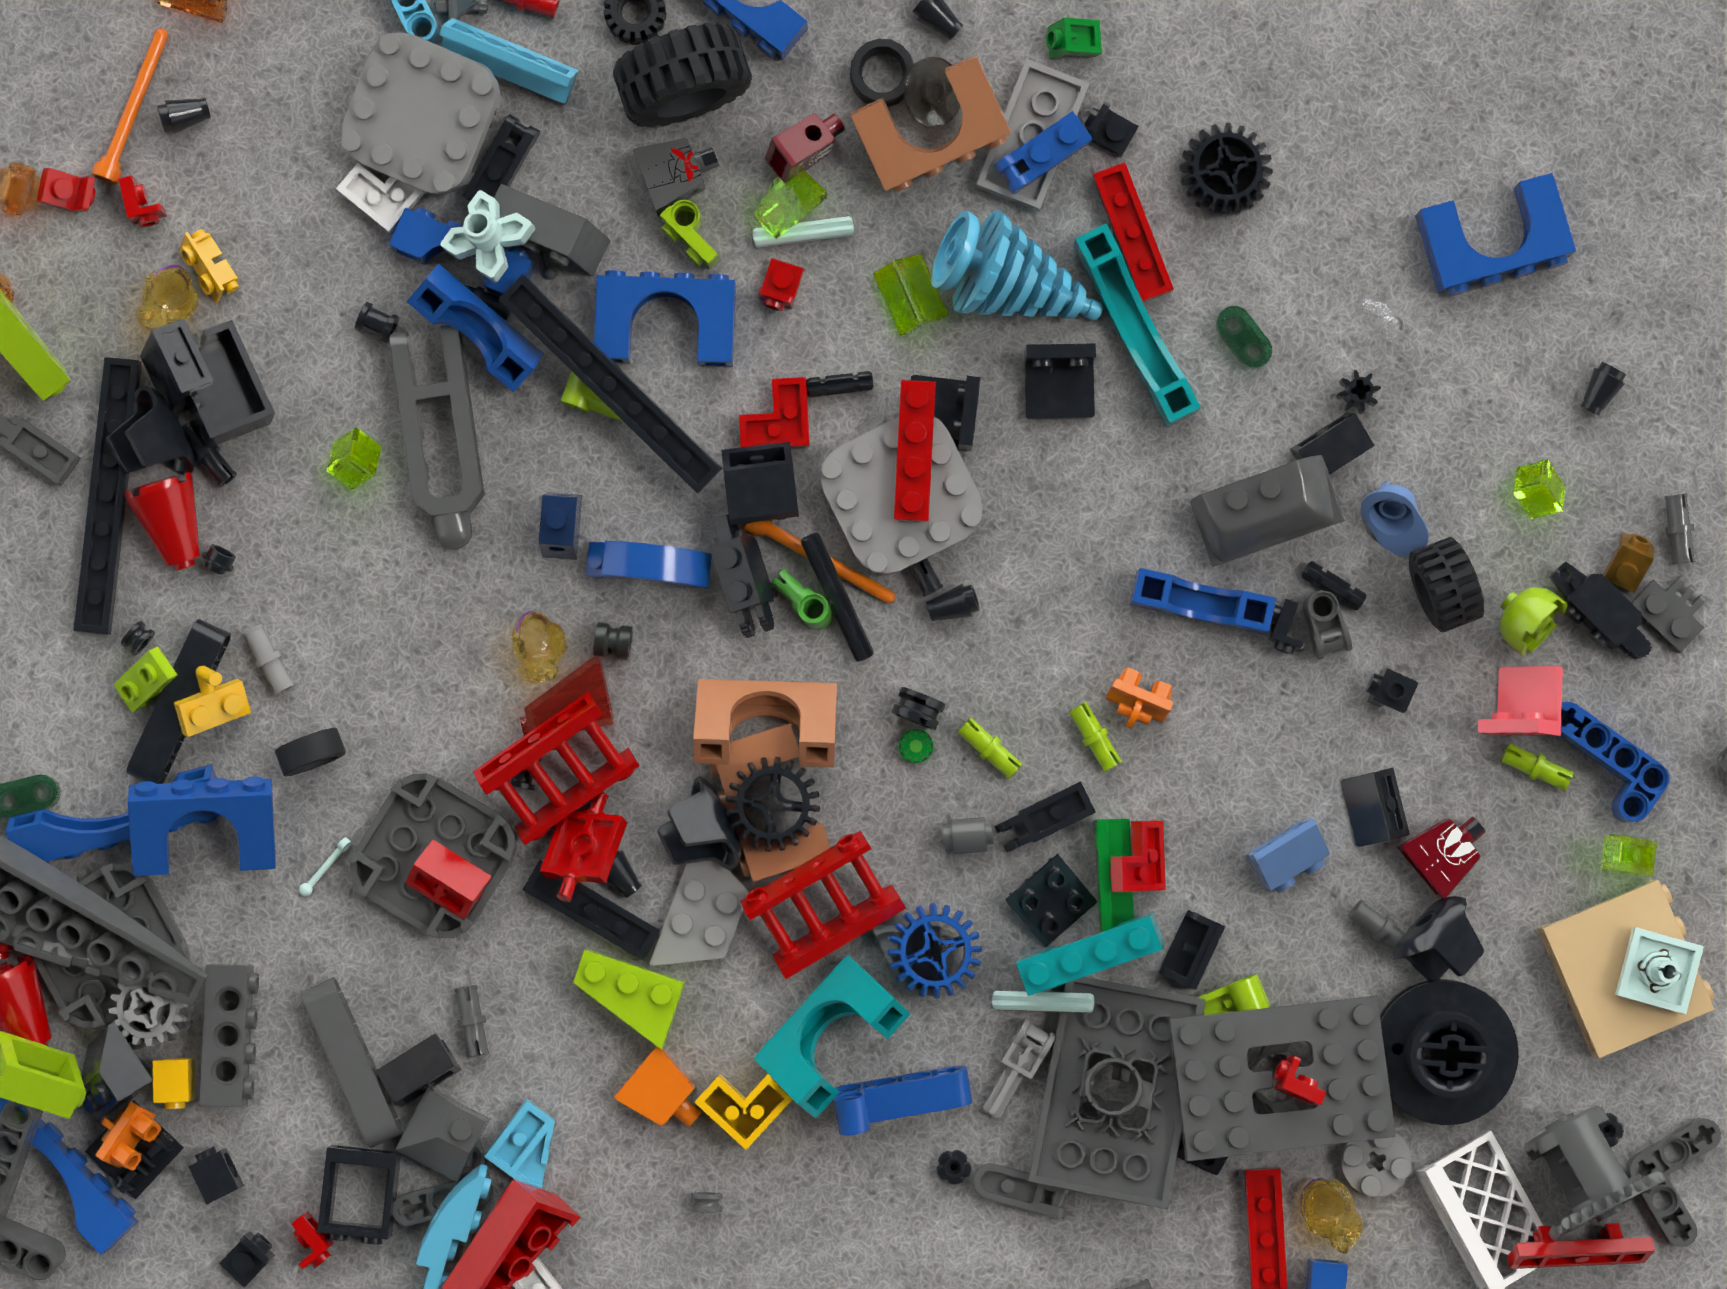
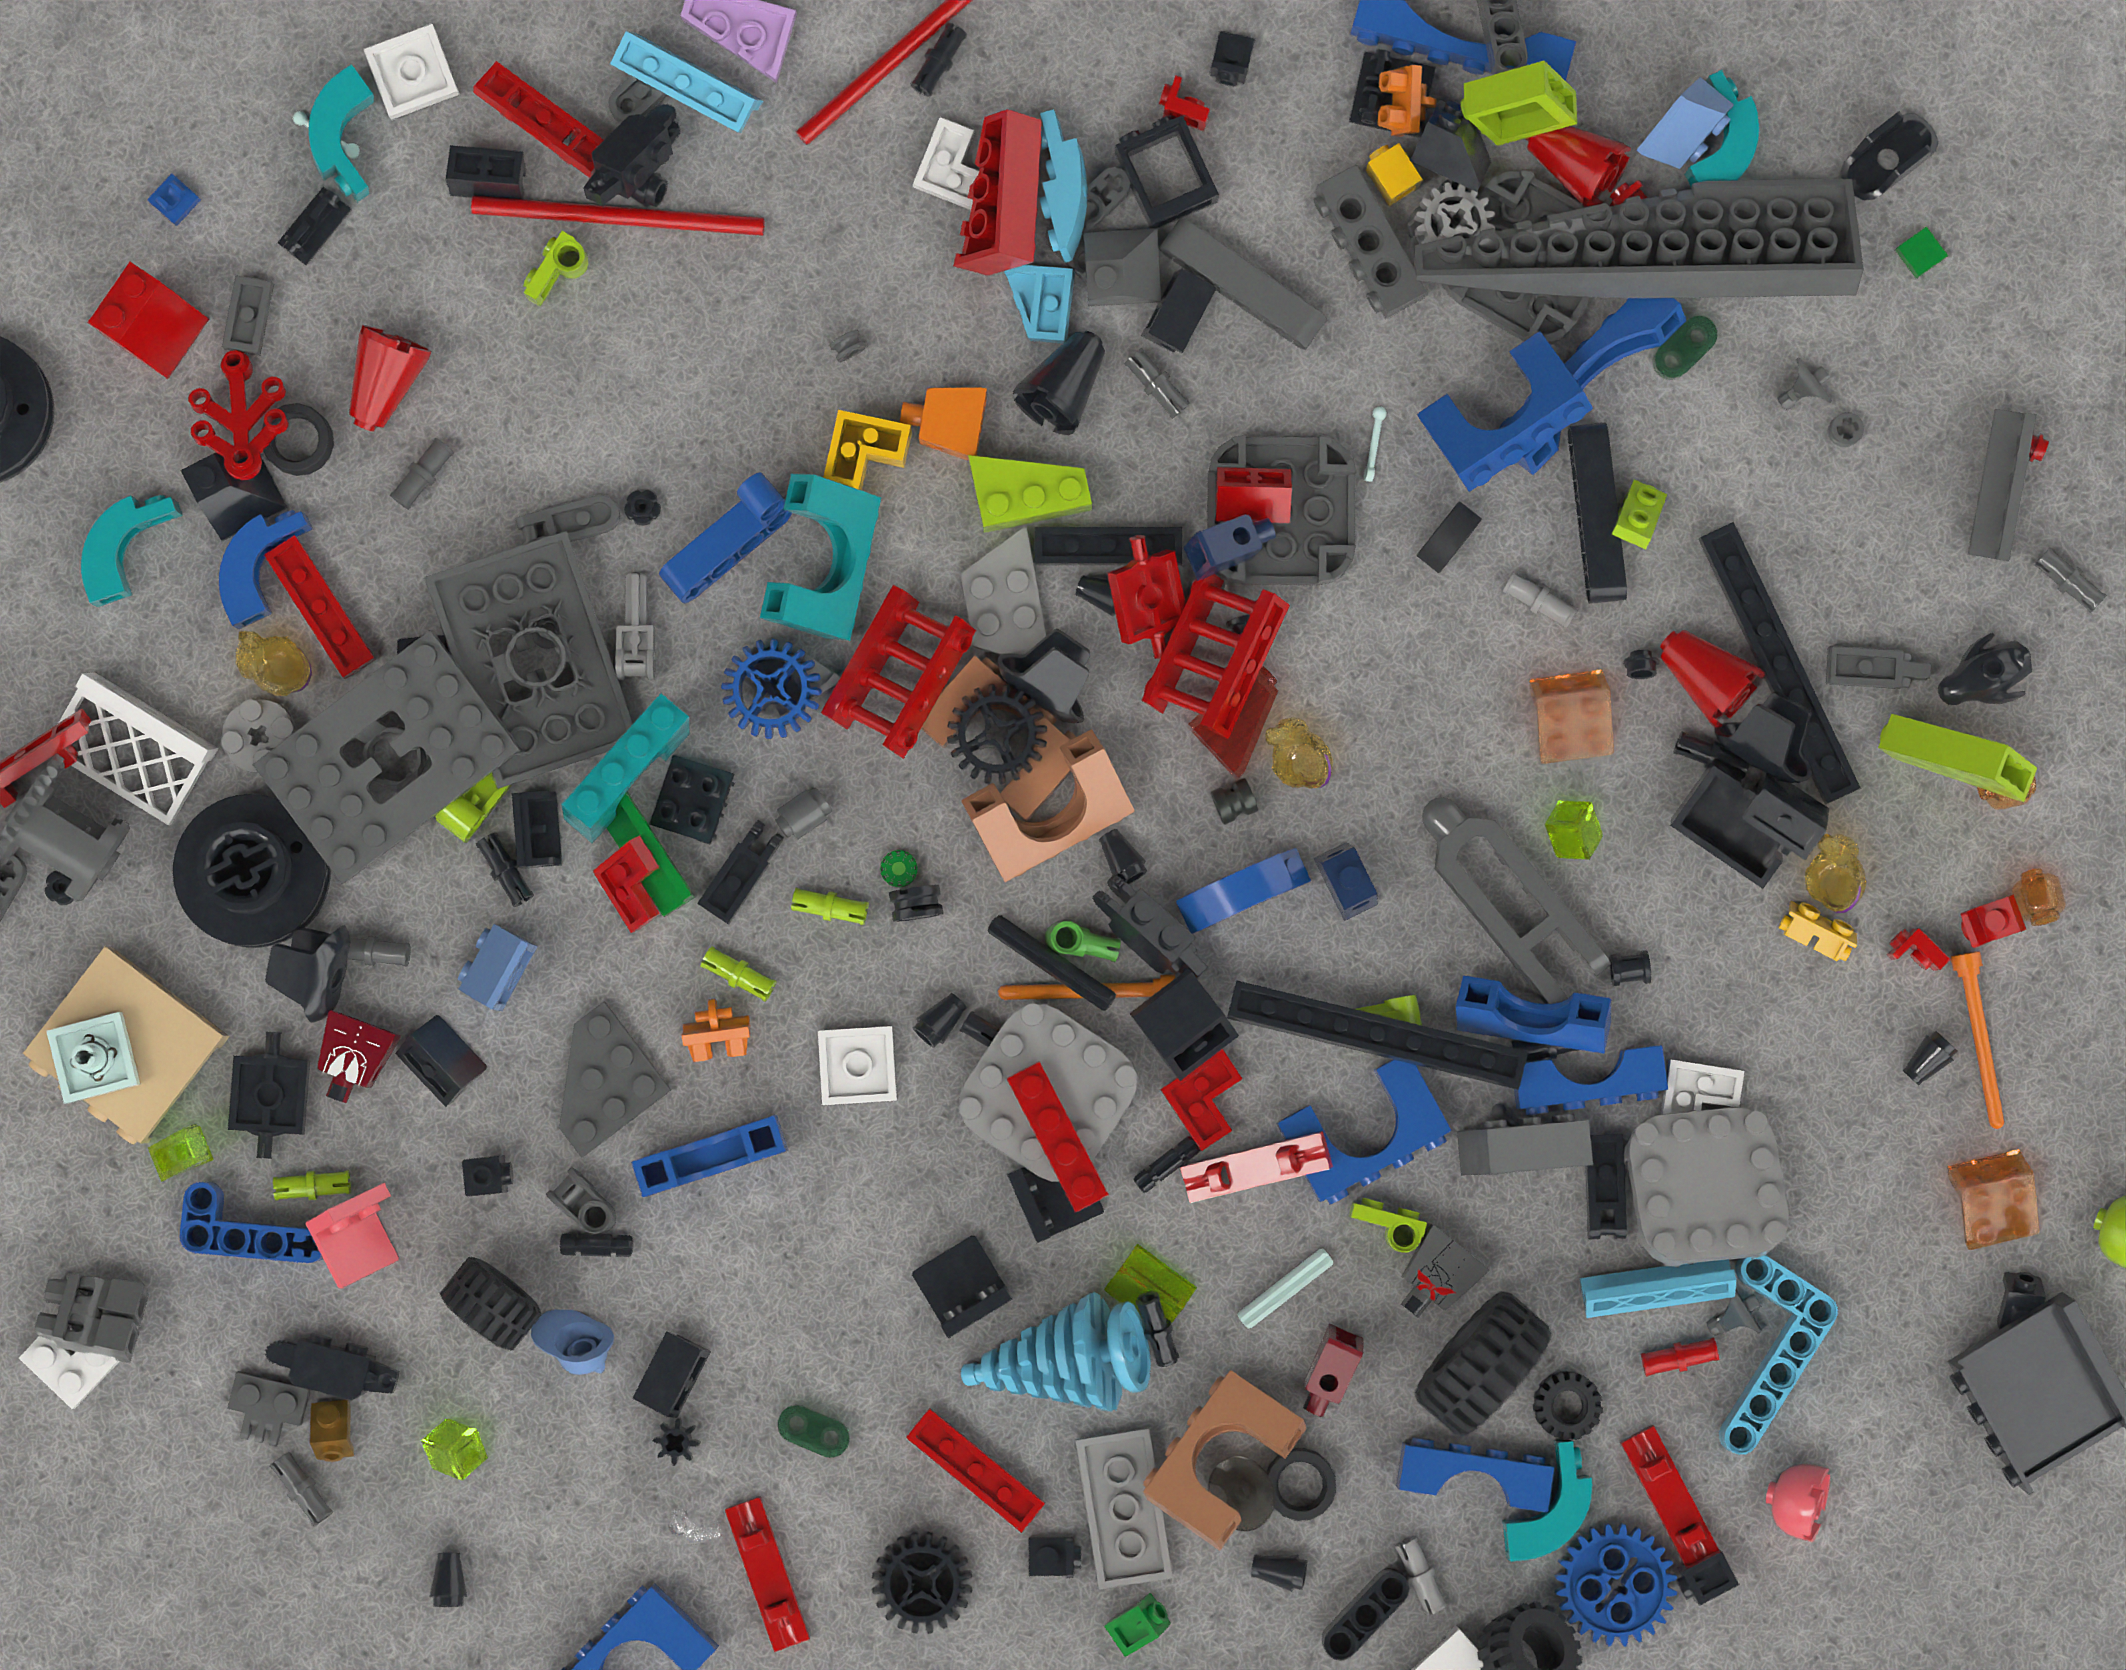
camera: 150 degrees right, 0 degrees up
(137, 638) = (1671, 549): black bush -> none
(213, 704) = (1563, 528): yellow plate -> none
(215, 1174) = (1305, 113): black brick -> none
(298, 550) = (1573, 716): none -> clear orange bracket
(486, 236) = (1574, 1105): light aqua plant -> none
(501, 850) = (1216, 548): none -> dark blue torso
(548, 1065) = (1062, 383): none -> black cone
(730, 649) = (1122, 857): none -> black cone
(769, 337) = (1257, 1166): none -> hinge
(780, 285) = (1276, 1225): red bracket -> none
(788, 203) = (1313, 1306): clear neon green slope -> none
(923, 257) = (1157, 1329): none -> black pin
(1041, 606) = (857, 1065): none -> white plate
(1043, 1001) = (634, 707): light aqua axle -> none
(1044, 152) = (1102, 1496): blue plate -> none
(1123, 304) = (920, 1380): teal arch -> none
(1236, 932) = (504, 869): none -> black pin
(1251, 712) = (605, 1081): none -> dark grey plate
(1266, 509) = (697, 1277): dark grey windscreen -> none
(1281, 622) = (625, 1181): black bracket -> none
(1301, 1088) = (362, 757): red bracket -> none
(1344, 248) = (767, 1573): none -> red hinge
(1529, 618) = (396, 1319): lime cylinder -> none
(1531, 860) = (269, 1095): none -> black plate

